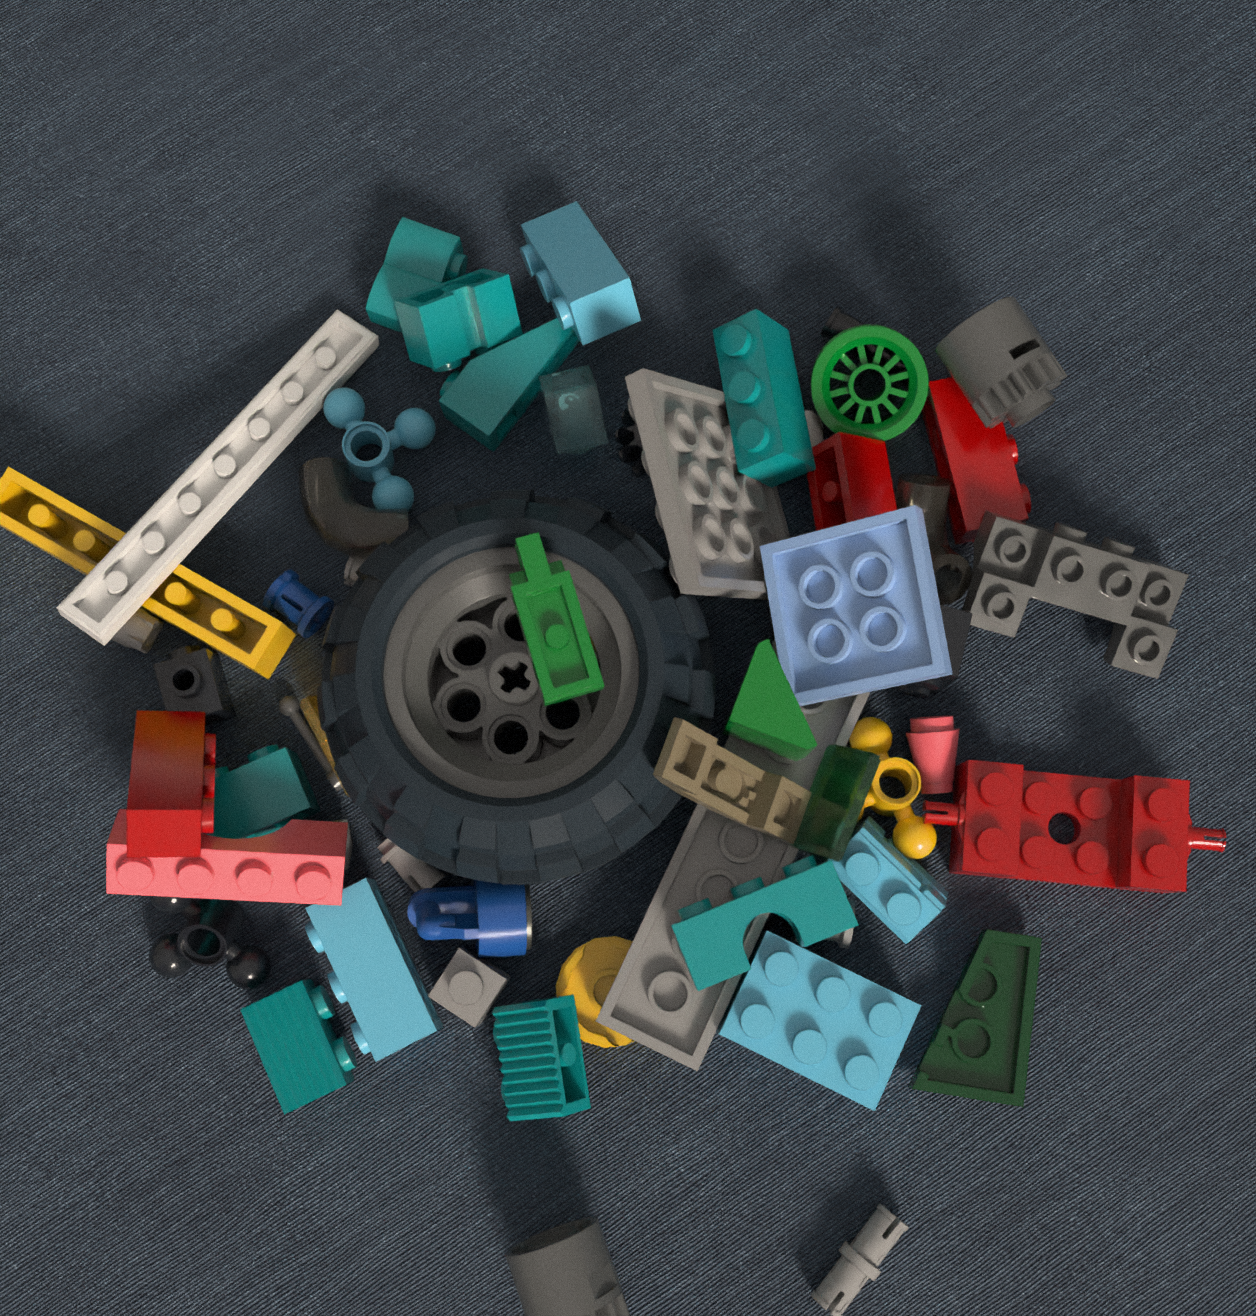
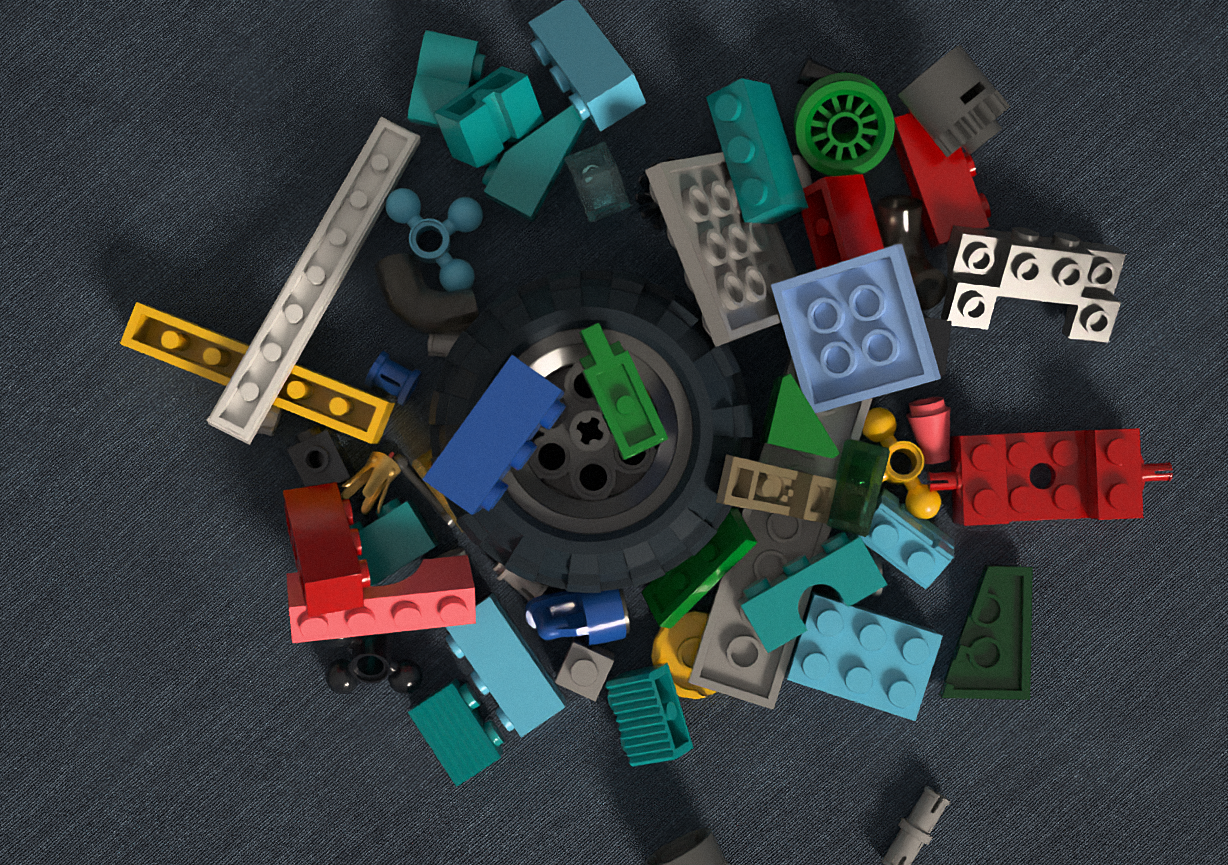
camera: 10 degrees left, 10 degrees up
(255, 715) = (378, 474): none -> pearl gold piece
(388, 646) = (496, 437): none -> blue brick
(628, 880) = (687, 583): none -> green plate

